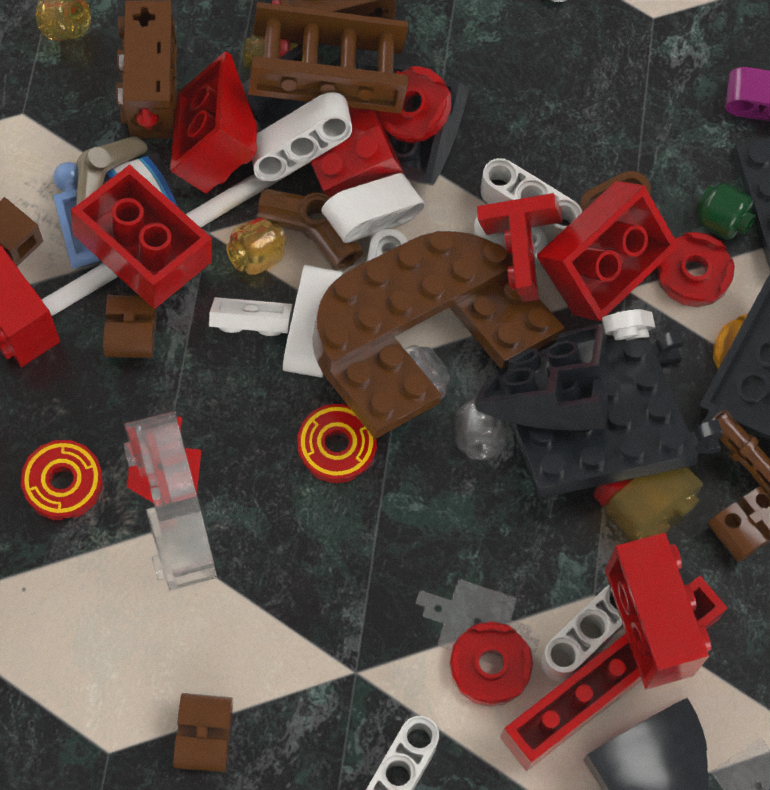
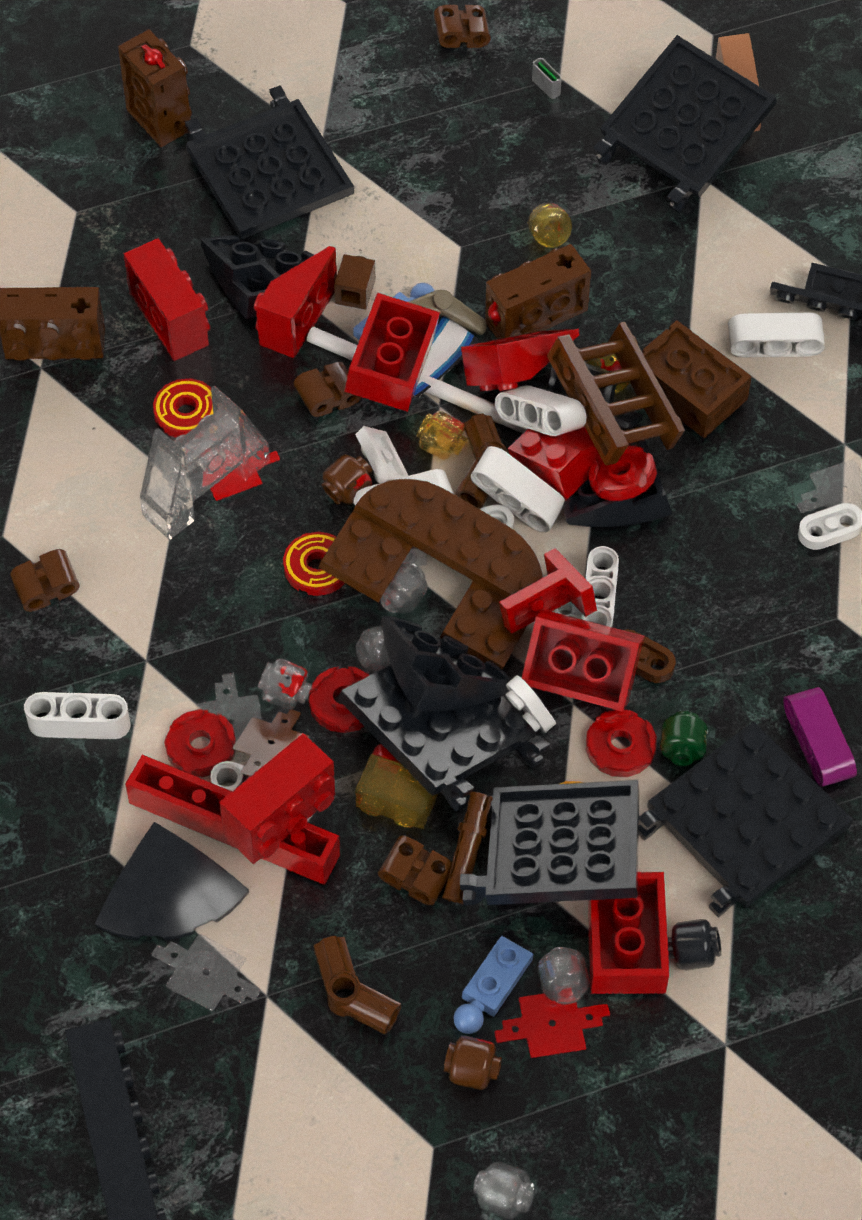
camera: 65 degrees right, 10 degrees down
(258, 362) = (346, 478): none -> reddish brown head
(473, 544) = (284, 684): none -> clear head
(495, 513) = (322, 703): none -> red tile
(534, 610) = (258, 733): none -> piece

